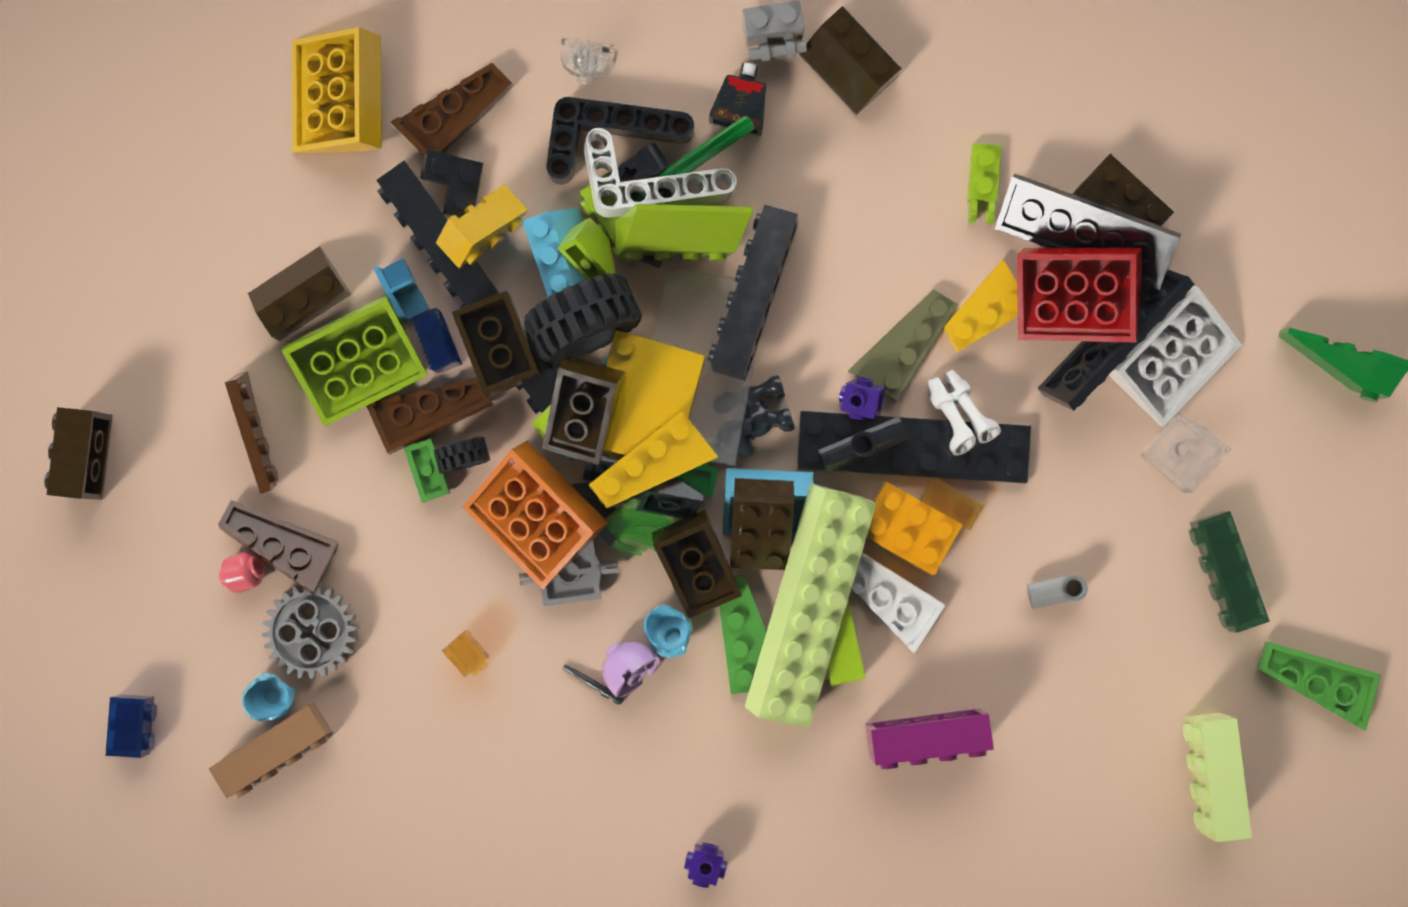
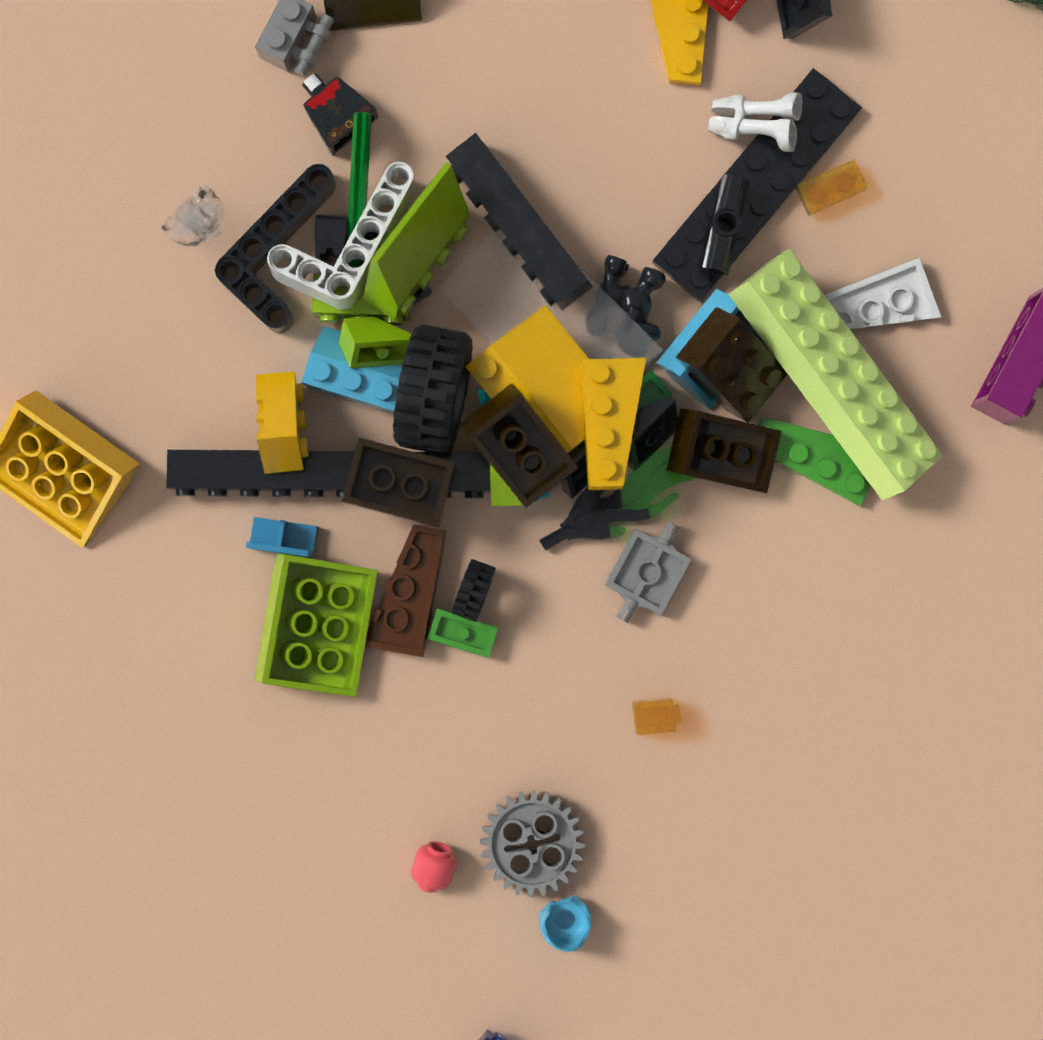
camera: 65 degrees left, 0 degrees up
(78, 454) = (218, 938): dark brown brick -> none
(250, 427) = (305, 762): reddish brown wing -> none
(270, 750) = (615, 955): medium nougat brick -> none
(285, 546) = (436, 811): wing -> none
(298, 294) = (216, 634): dark brown slope -> none
(436, 340) = (352, 539): clear blue brick -> none
(453, 111) = (154, 386): reddish brown wing -> none
(460, 176) = (218, 411): black plate -> none
(534, 514) = (575, 563): orange slope -> none
(604, 690) = (777, 615): black piece -> none
(627, 666) = (770, 578): lavender cylinder -> none
(667, 631) = (766, 520): medium azure hair -> none
(708, 854) = (986, 636): dark purple brick -> none
(845, 660) = (906, 379): lime slope -> none
(862, 398) = (686, 186): dark purple brick -> none
(903, 348) = (663, 133): olive wing -> none
(911, 529) = (831, 236): light orange brick -> none
(1054, 591) = (975, 152): light grey piece -> none

